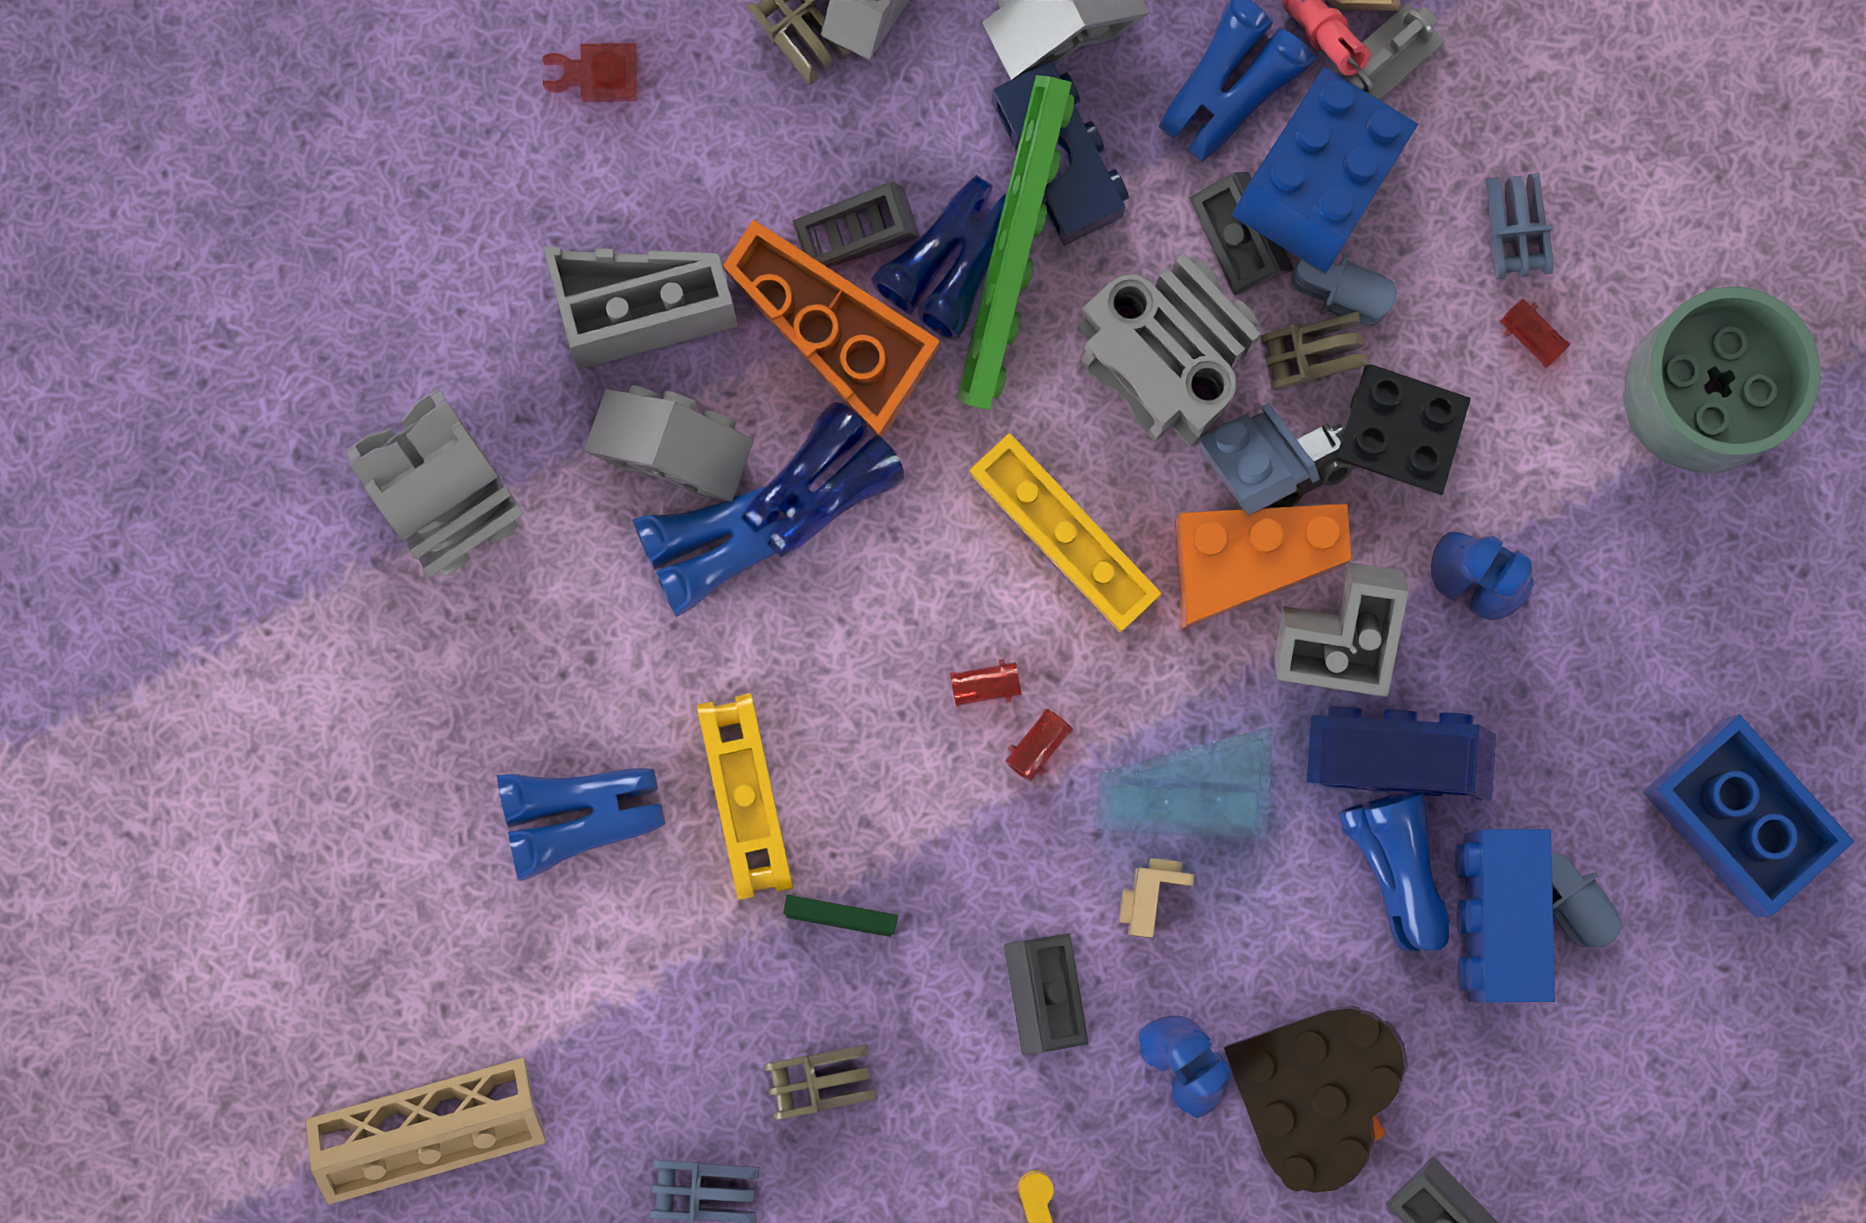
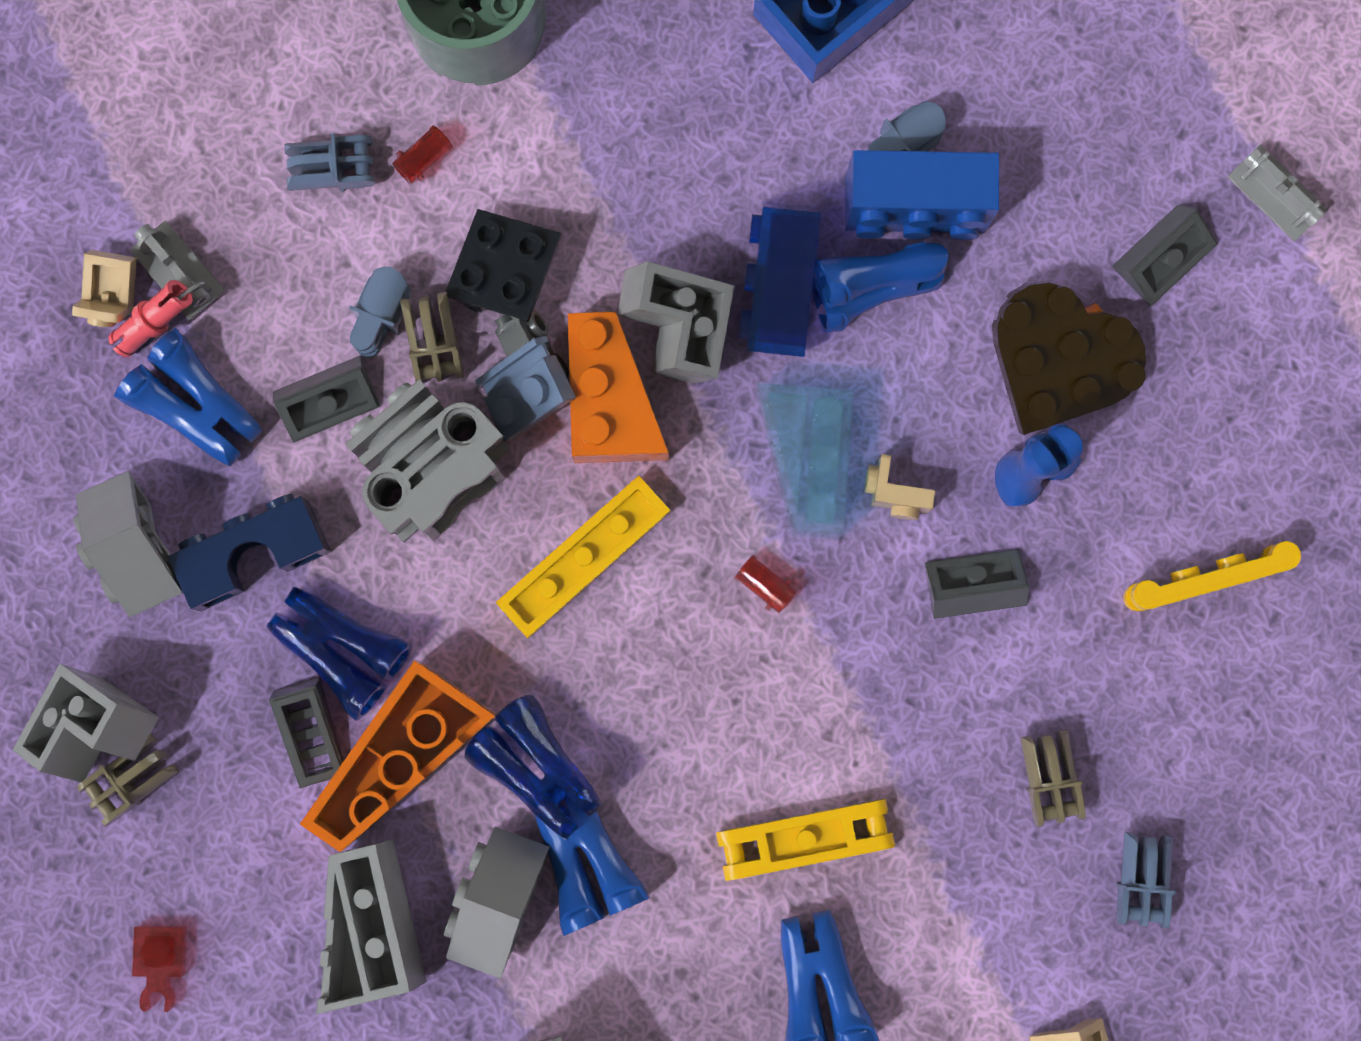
camera: 85 degrees left, 0 degrees up
(840, 916) = (911, 757): dark green tile -> none
(986, 684) = (712, 628): clear red pin -> none
(1020, 221) = (310, 587): bright green plate -> none
(1324, 169) = (275, 322): blue brick -> none
(1501, 575) = (628, 196): blue piece -> none

